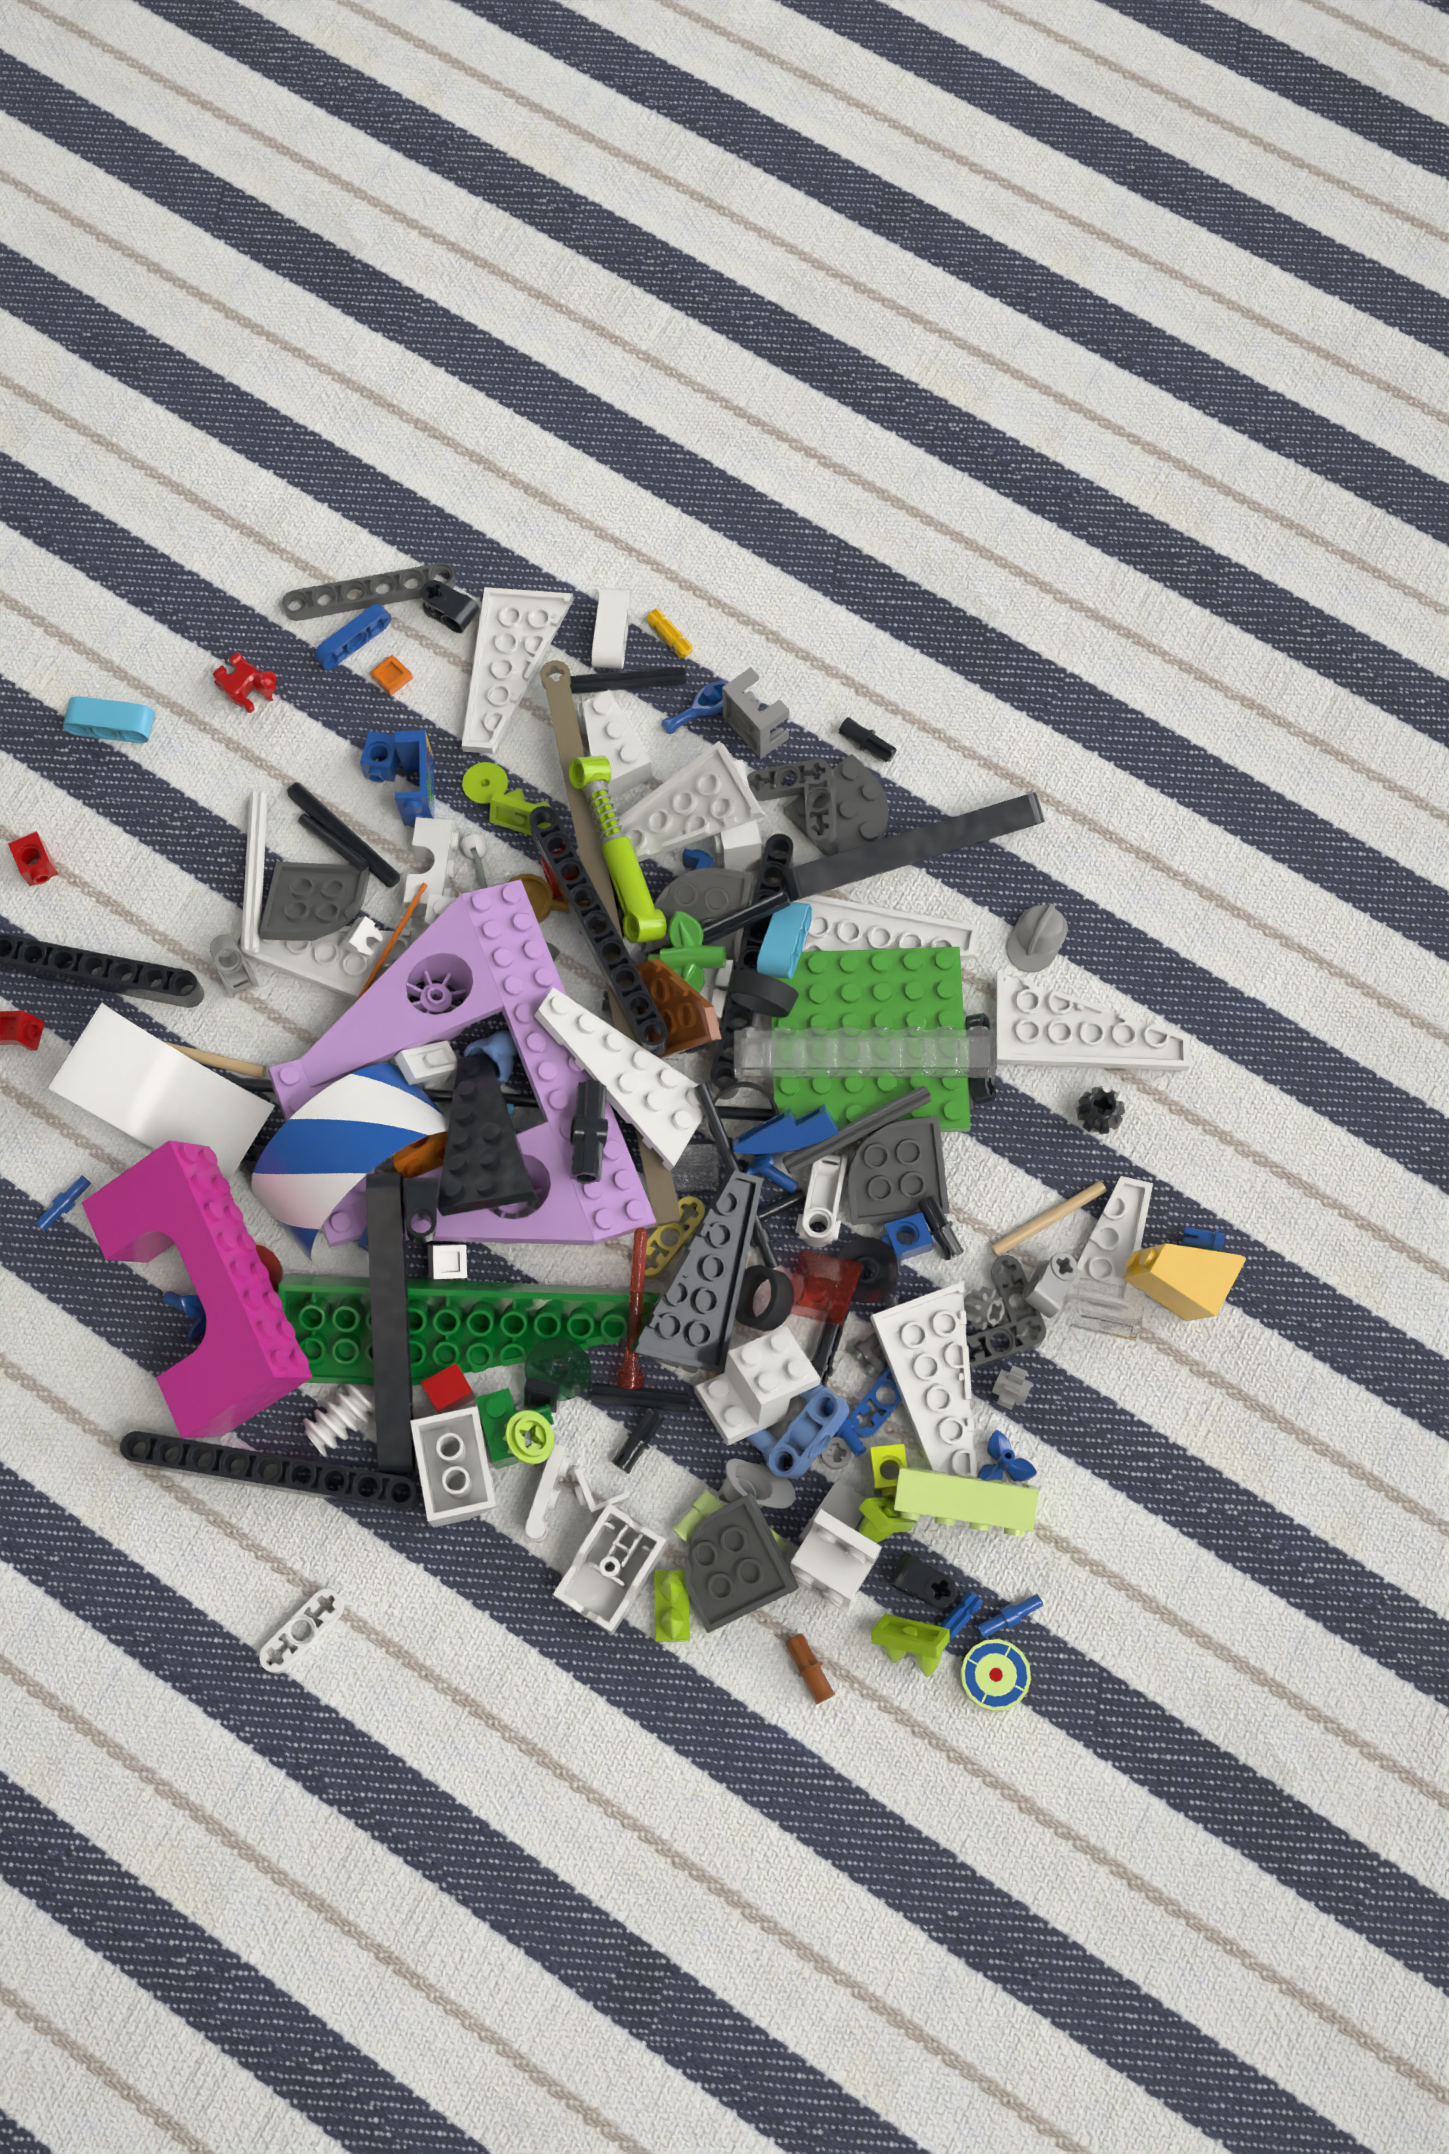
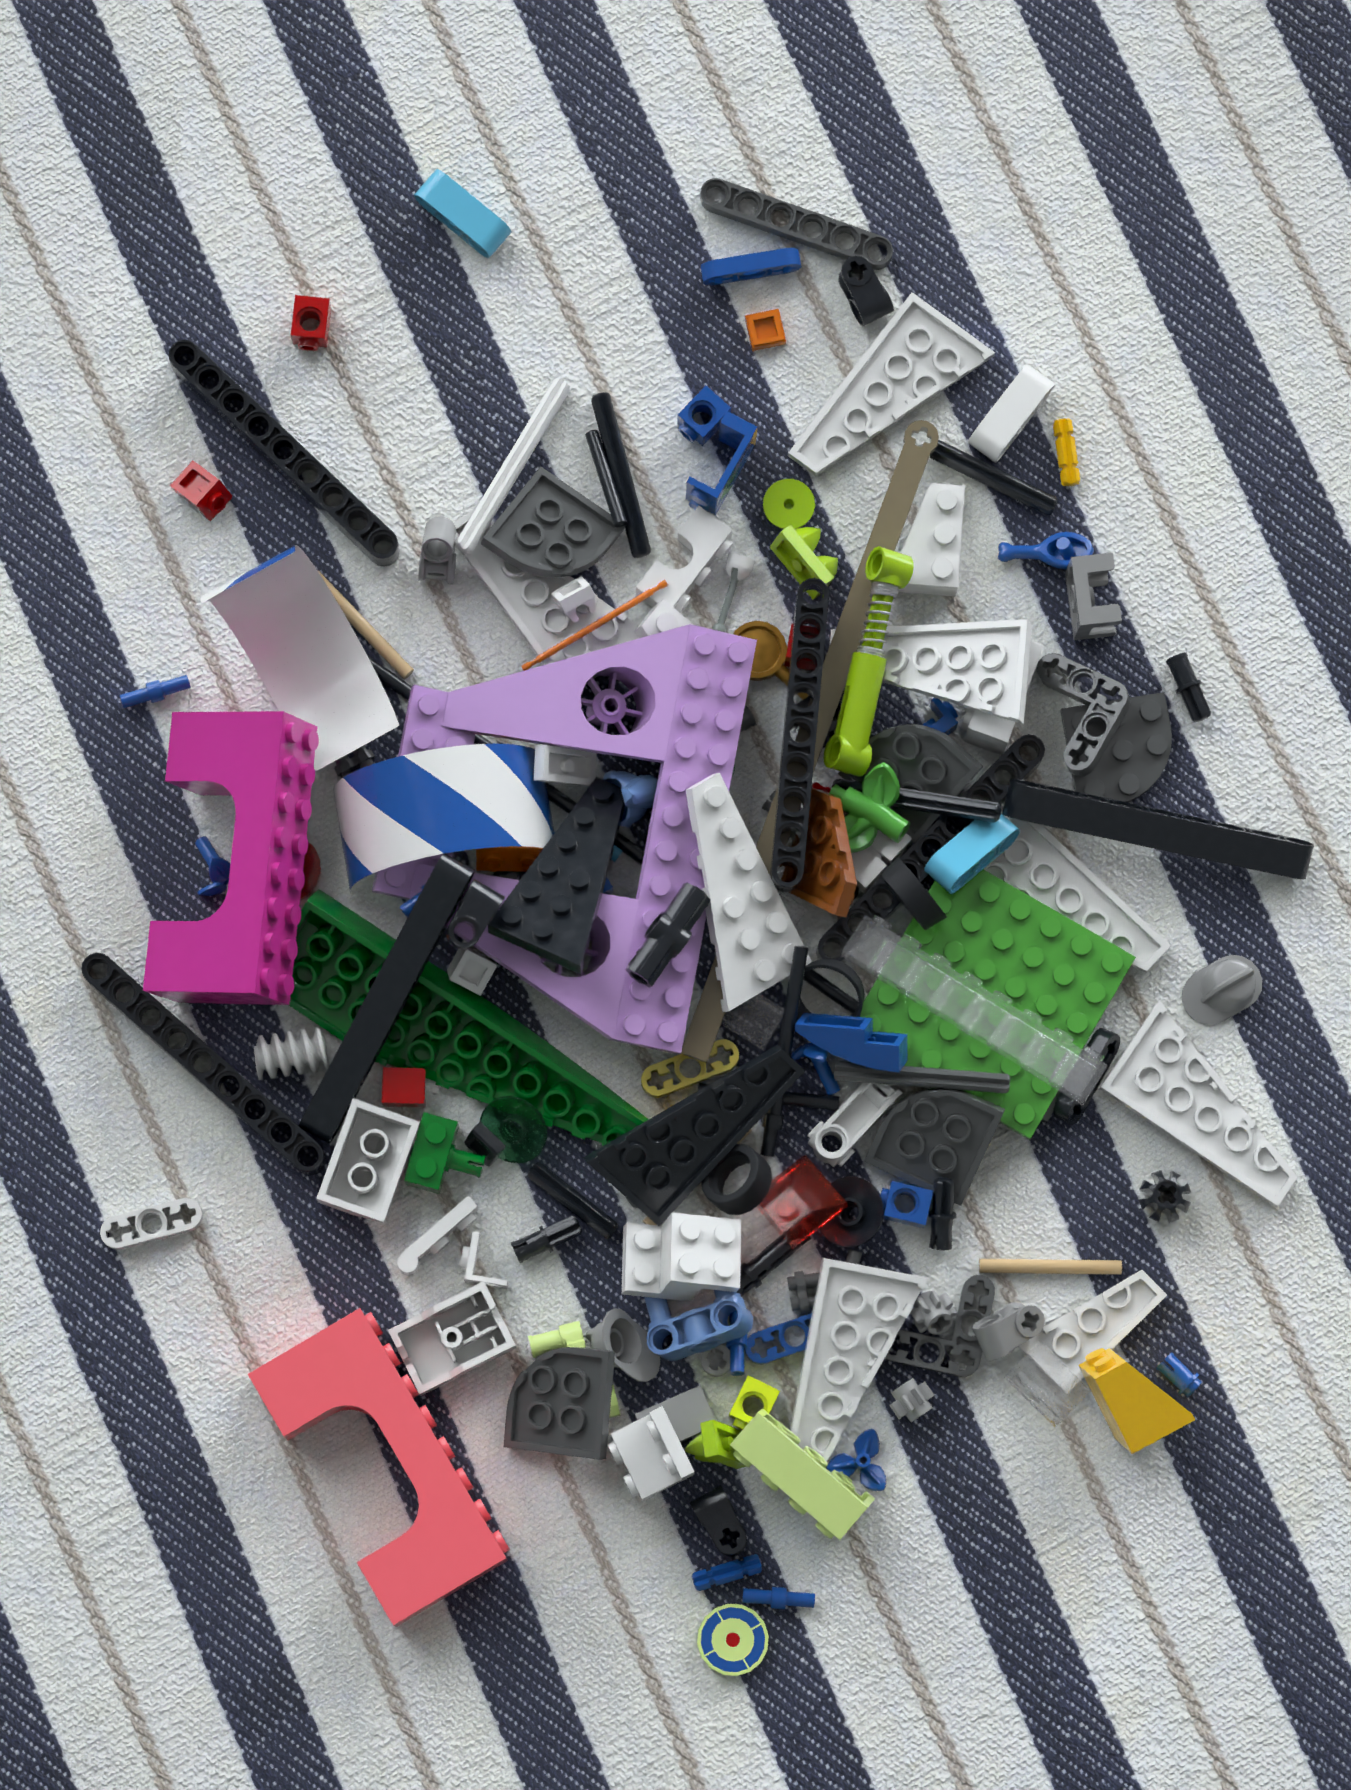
camera: 25 degrees right, 10 degrees up
(243, 681) = (617, 250): red animal -> none
(540, 1433) = (461, 1182): lime gear -> none
(547, 1645) = (352, 1371): none -> coral arch
(630, 1374) = (575, 1175): clear red piece -> none
(671, 1607) = (486, 1404): lime tile -> none
(809, 1668) = (574, 1532): dark orange axle -> none
(904, 1635) = (673, 1556): lime tile -> none

